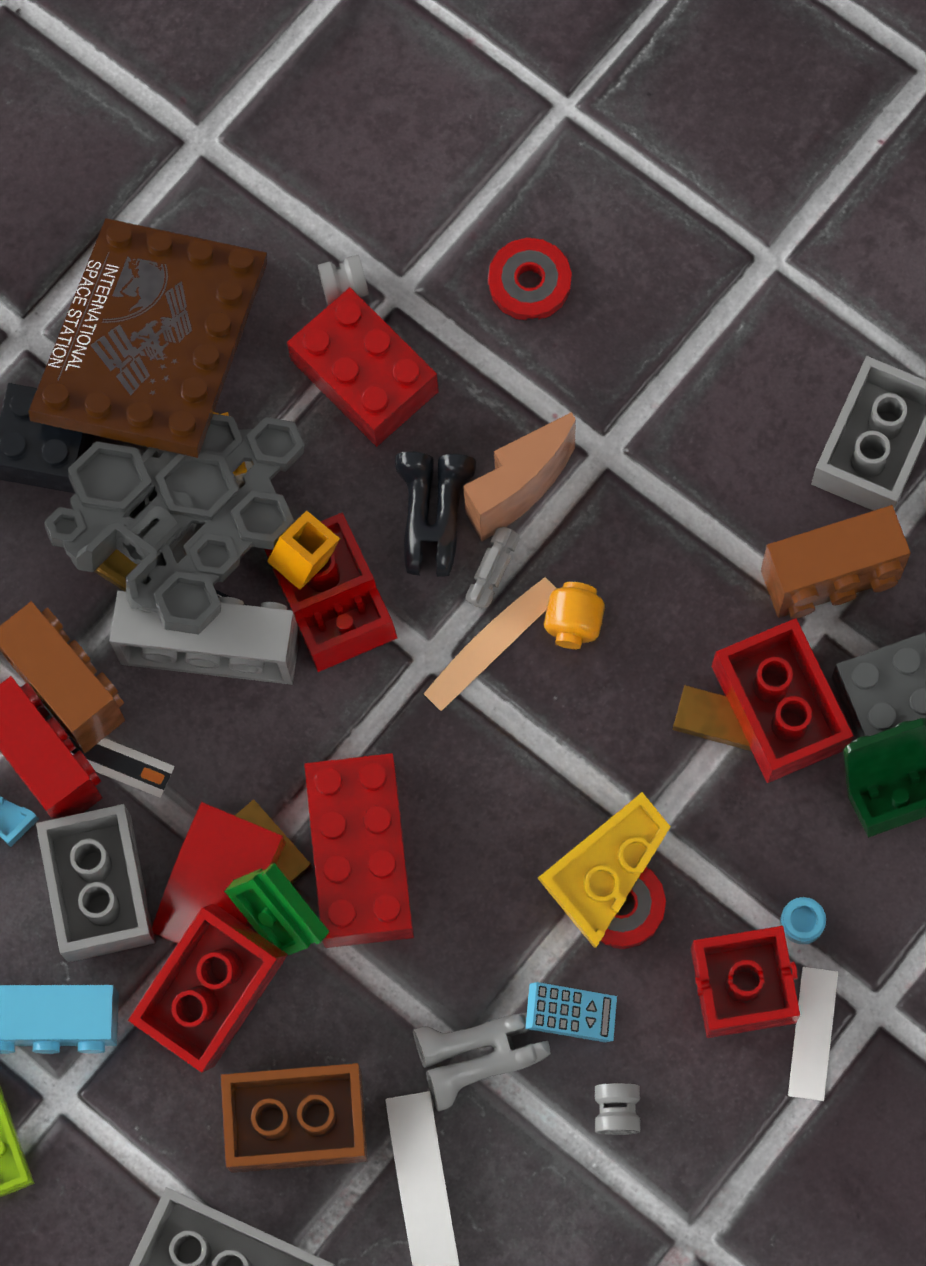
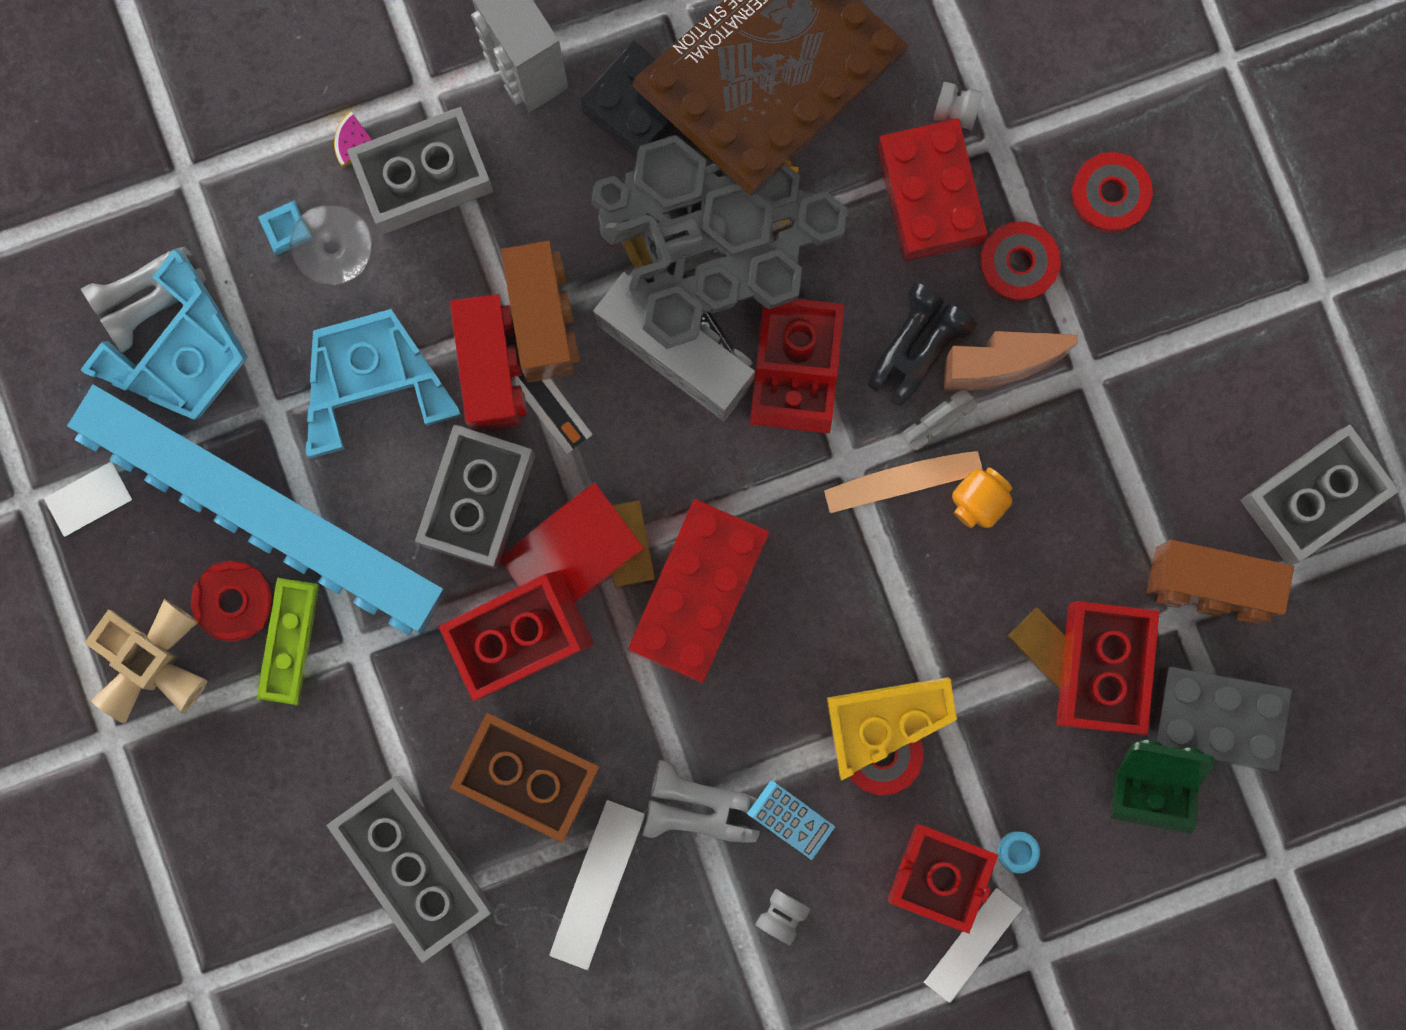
camera: 25 degrees right, 10 degrees up
(276, 909) = (604, 606): green plate -> none
(303, 550) = (792, 323): light orange brick -> none
(488, 363) = (1022, 238): none -> red tile

